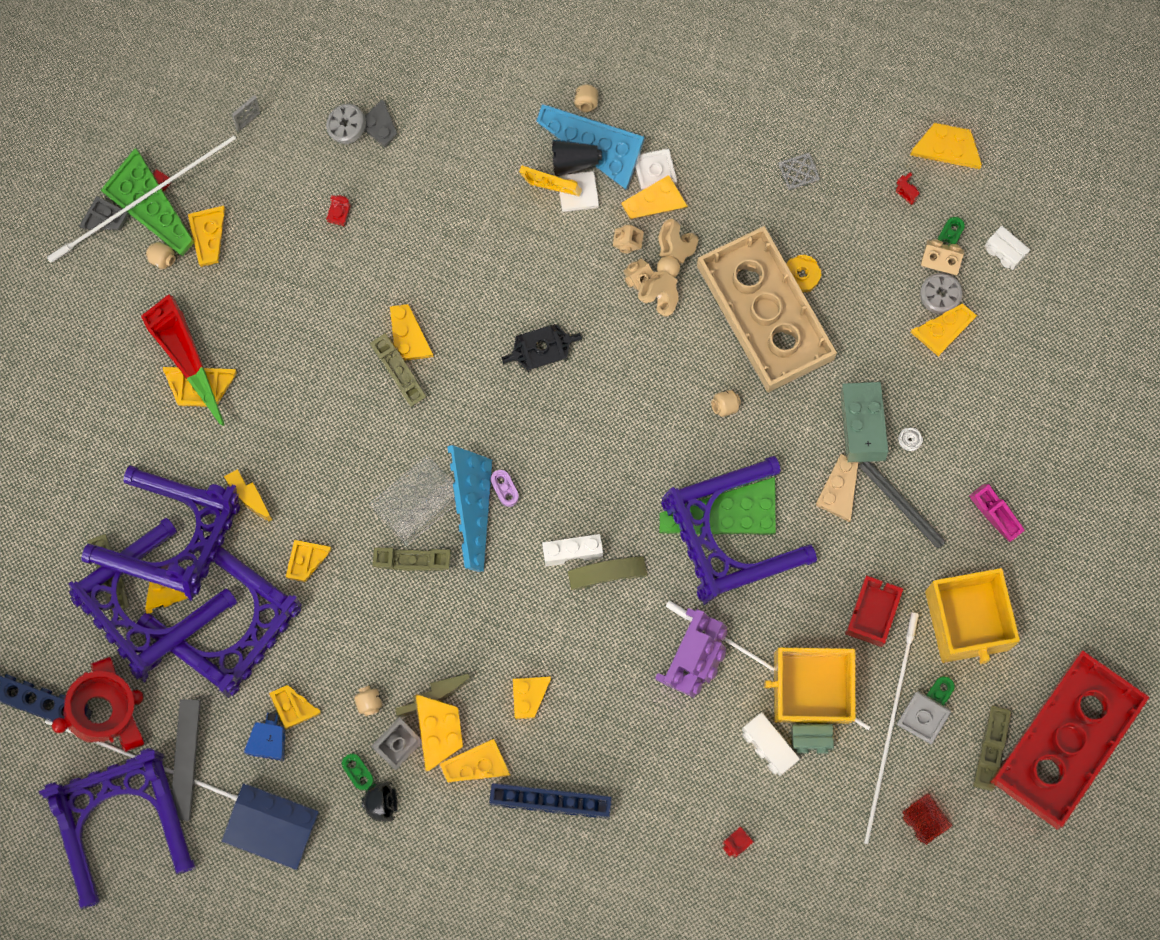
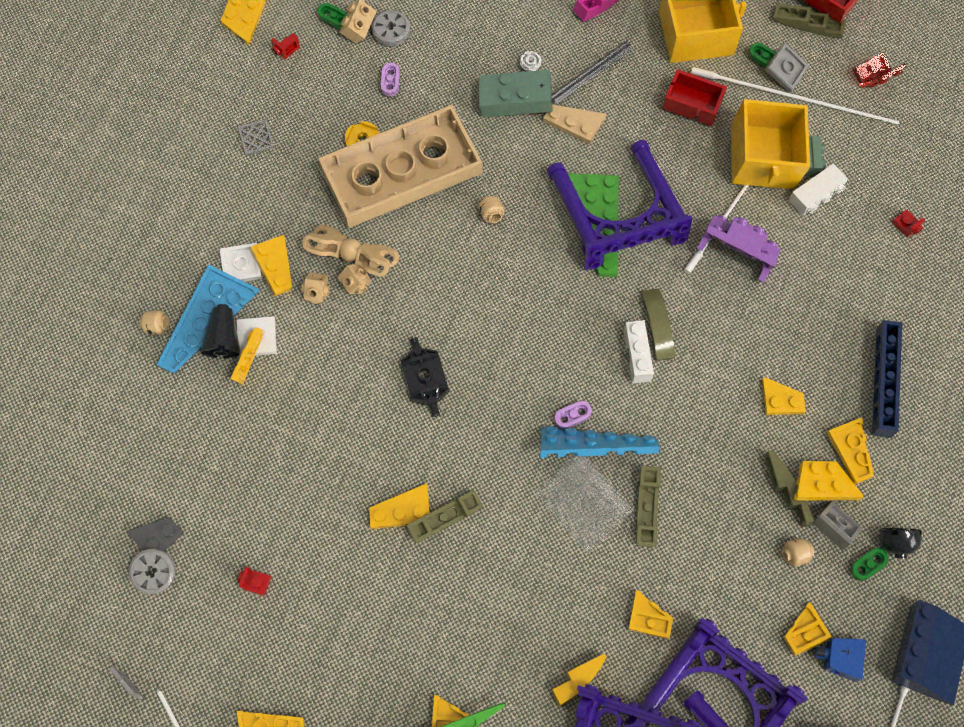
camera: 90 degrees left, 5 degrees down
(875, 295) = (390, 81): none -> lavender plate
(943, 330) = (426, 27): yellow wing -> none

